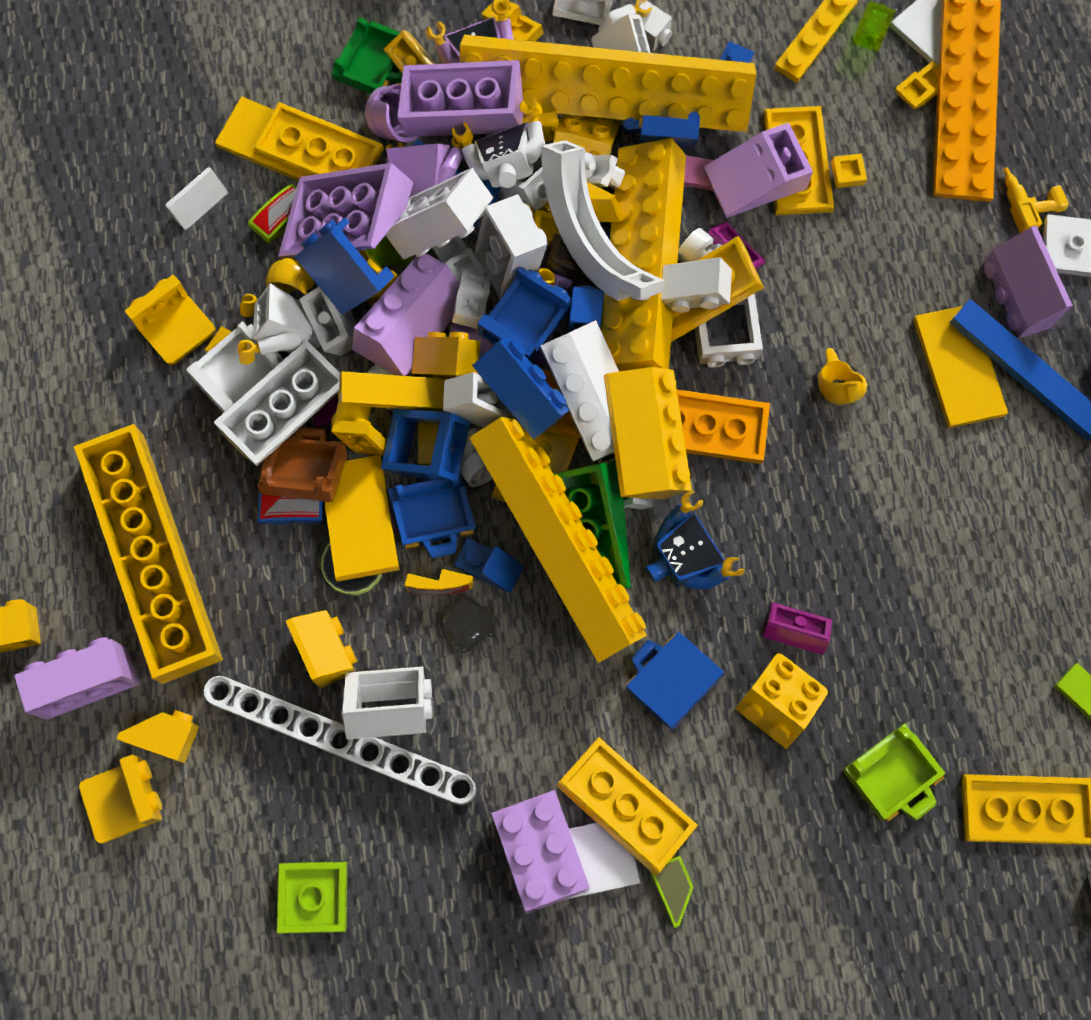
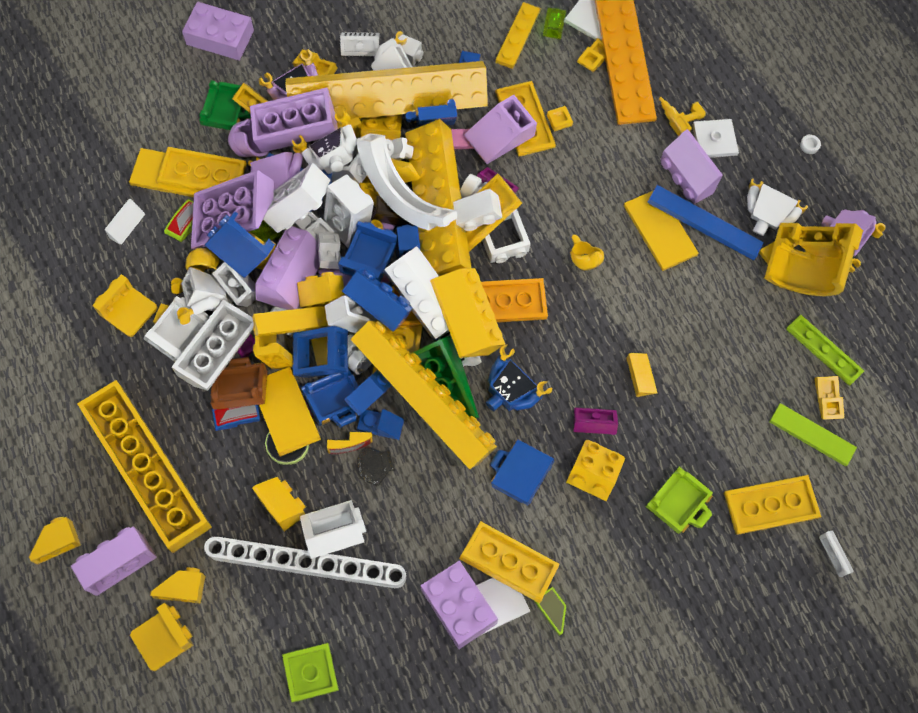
camera: 15 degrees left, 5 degrees down
(478, 518) = (368, 392): none -> blue slope
(881, 575) = (641, 374): none -> yellow slope

